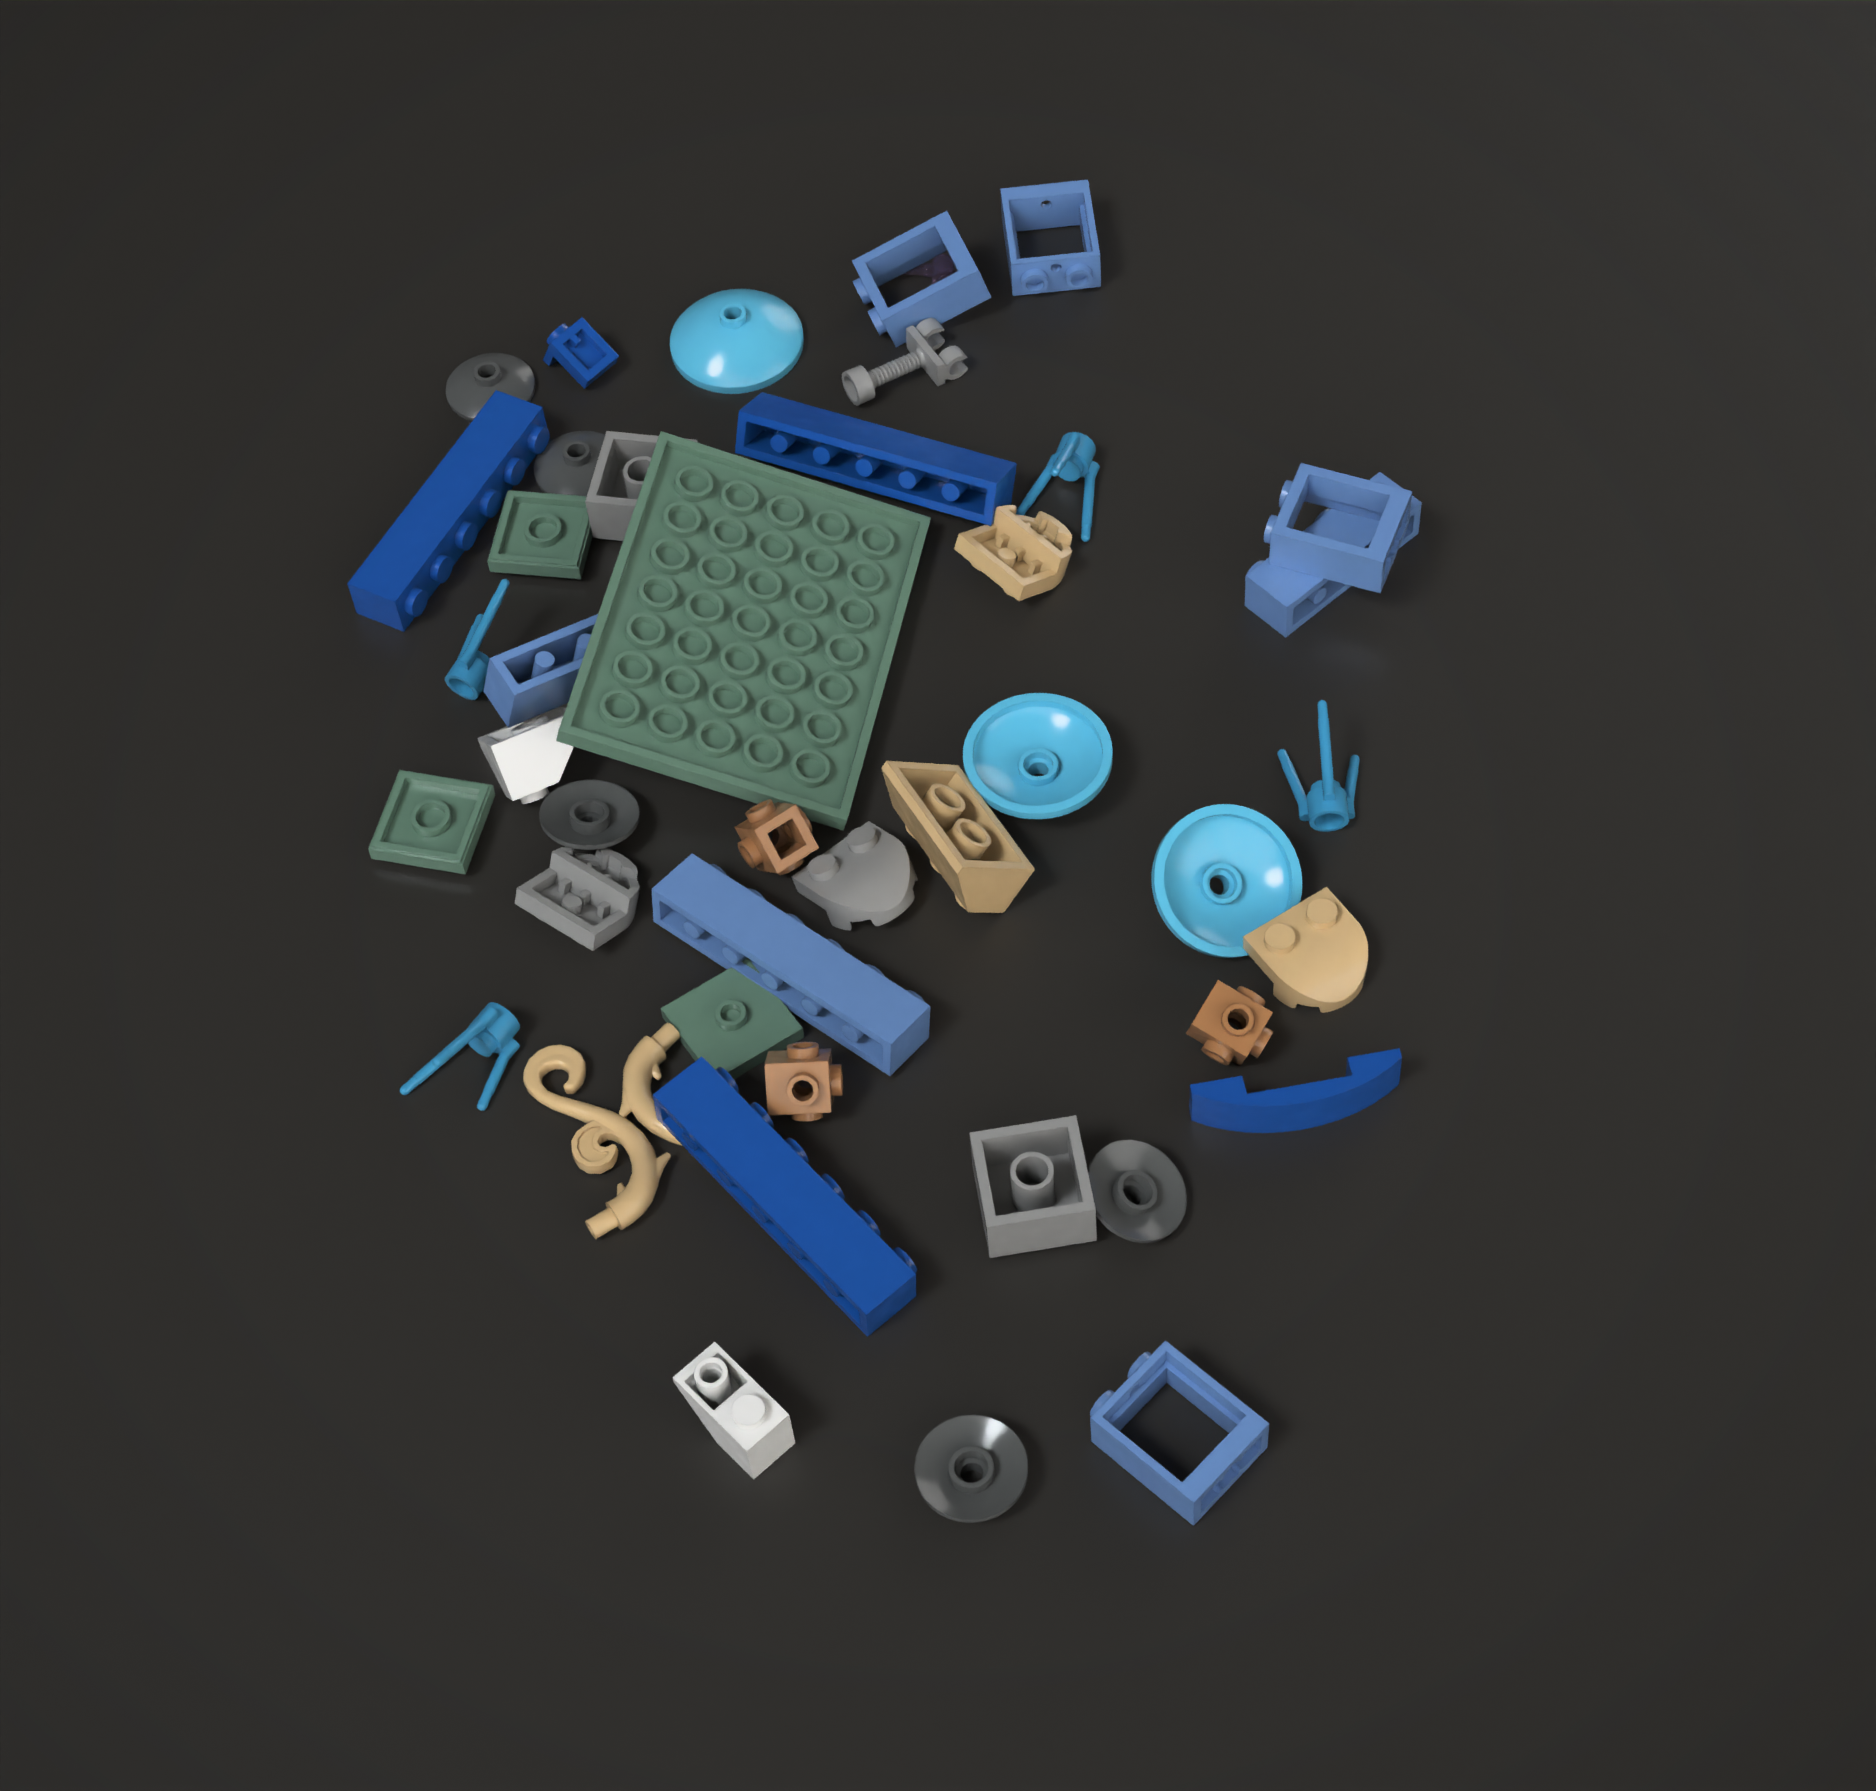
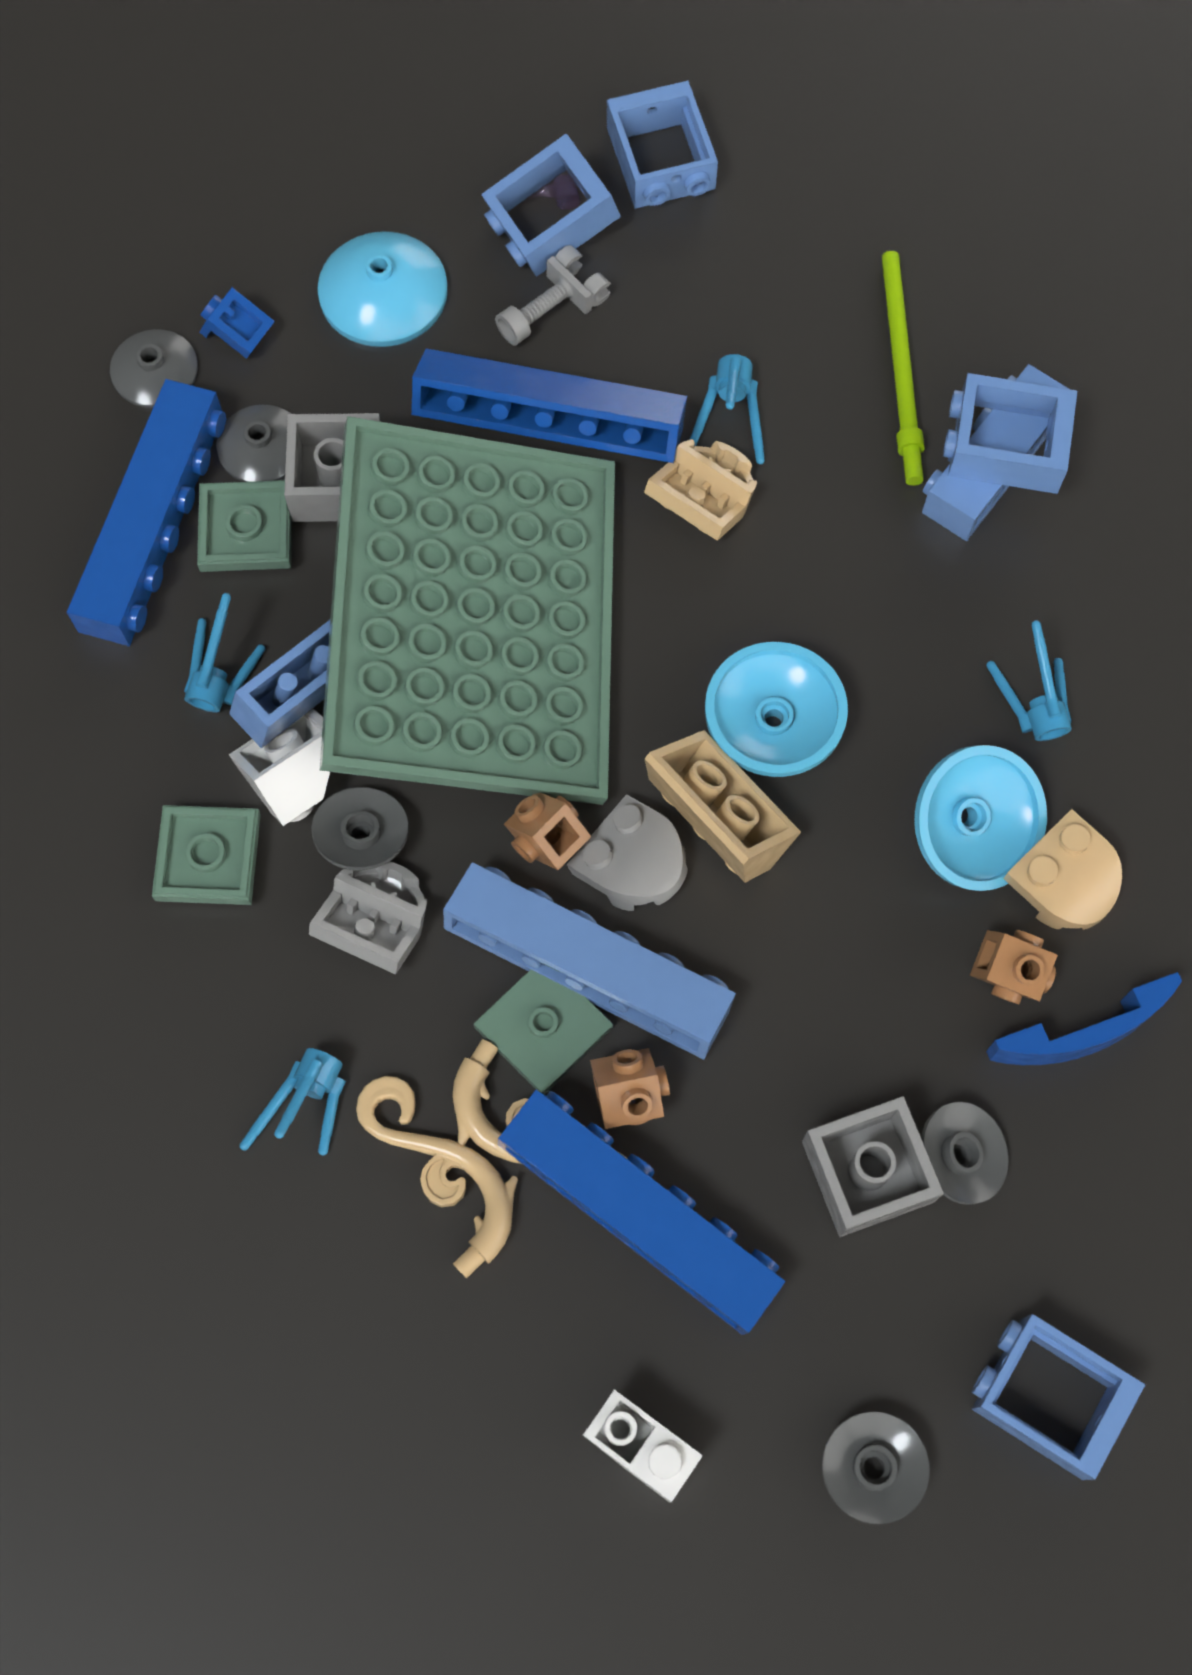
camera: 15 degrees left, 15 degrees up
(1246, 531) = (910, 437): none -> lime bar

